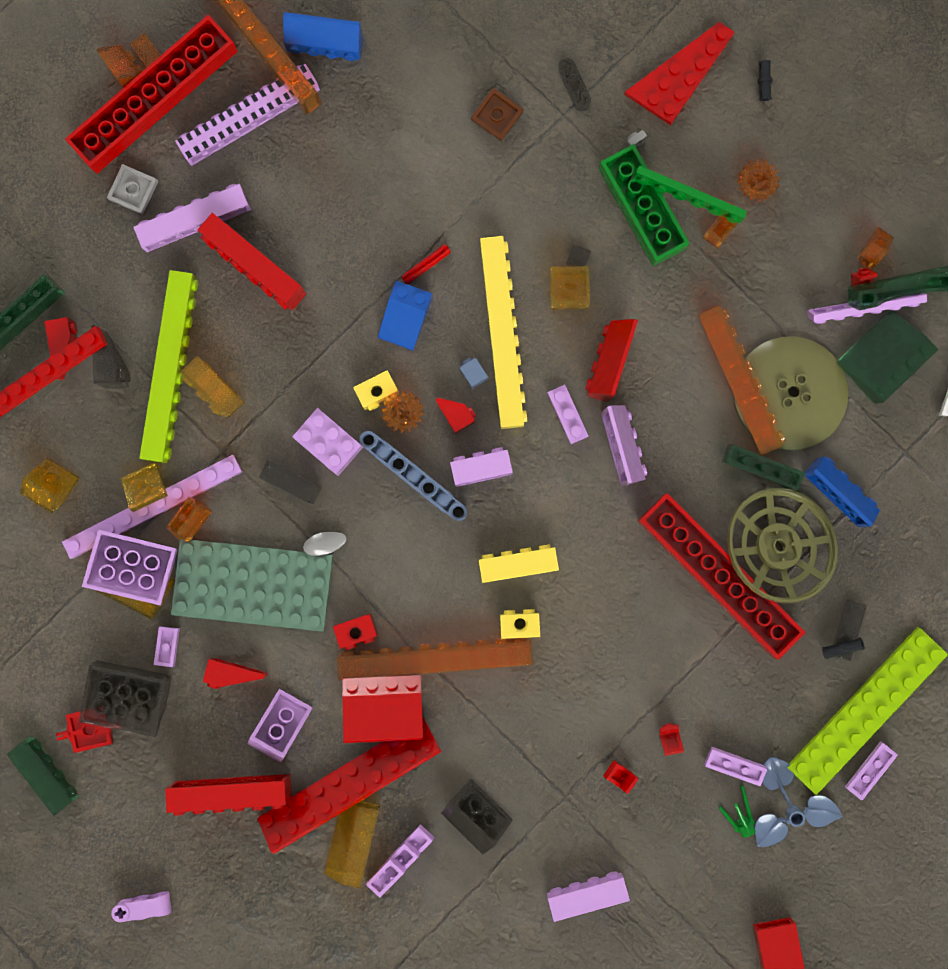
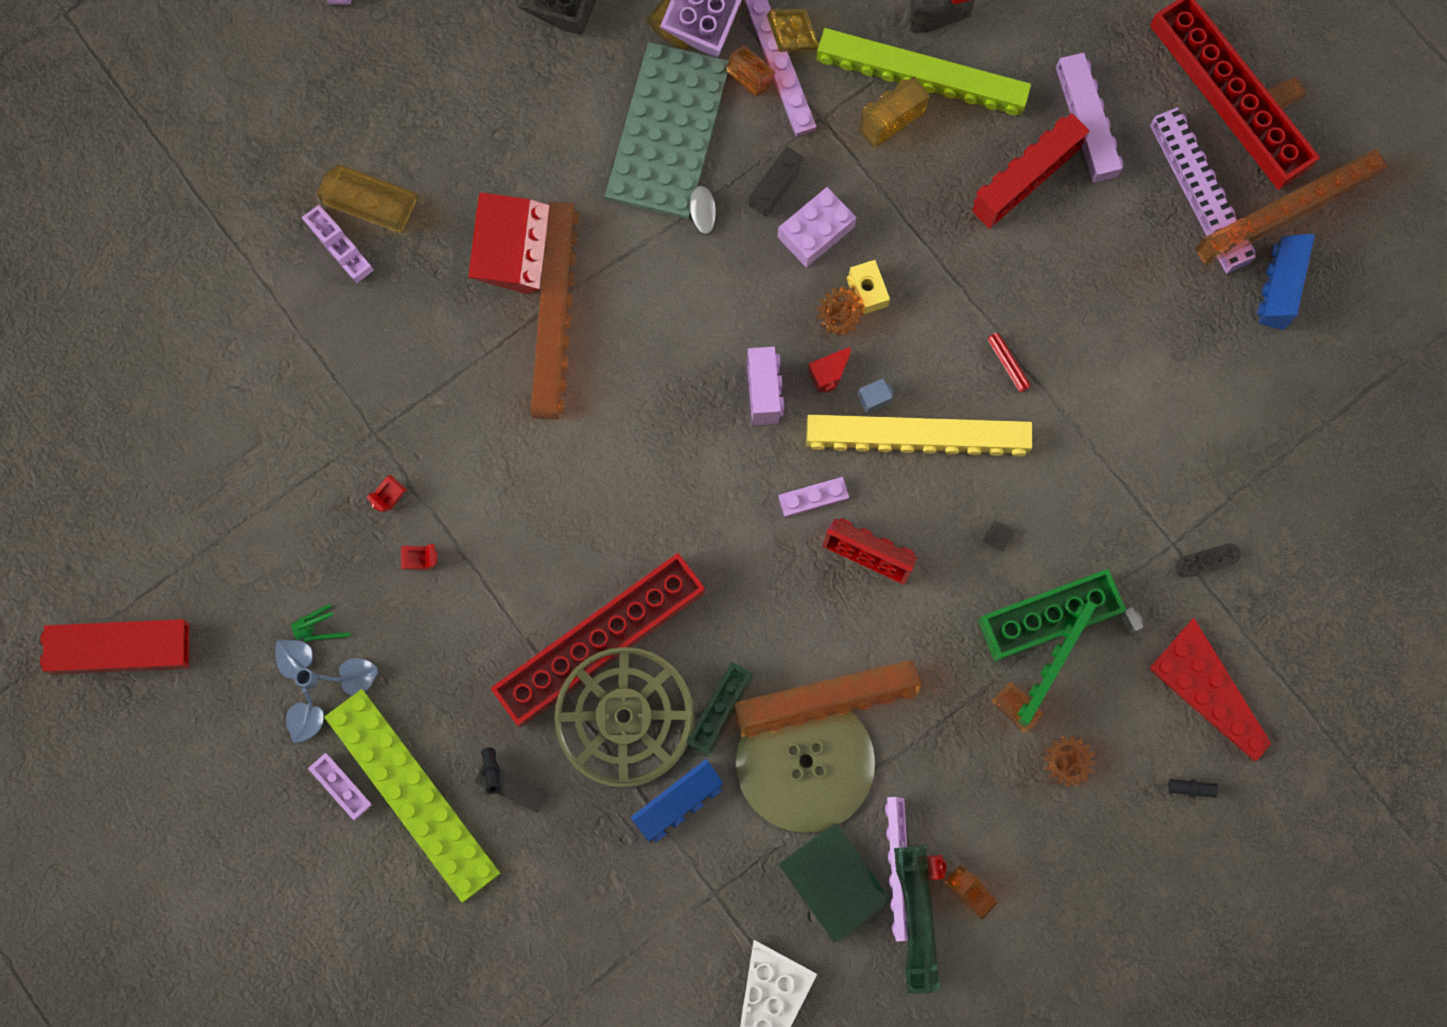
camera: 90 degrees right, 10 degrees down
(120, 63) = (1271, 60): clear orange slope -> none
(132, 189) = (1128, 59): light grey plate -> none
(166, 646) = (614, 33): lavender plate -> none
(224, 673) = (575, 88): red slope -> none
(228, 793) = (444, 74): red brick -> none
(279, 725) = (508, 137): lavender slope -> none
(345, 788) = (429, 197): red plate -> none
(364, 623) = (601, 217): red brick -> none
(405, 315) = (951, 330): blue slope -> none
(413, 475) = (765, 314): sand blue beam -> none
(477, 817) = (371, 331): clear smoke slope -> none
(497, 114) = (1178, 465): reddish brown plate -> none
(518, 564) = (647, 416): light yellow brick -> none
(531, 627) = (578, 394): light yellow brick -> none
(569, 288) = (962, 515): clear yellow brick -> none
(587, 896) = (258, 439): lavender brick -> none
(623, 445) = (768, 548): lavender slope -> none
(735, 766) = (374, 627): lavender plate -> none

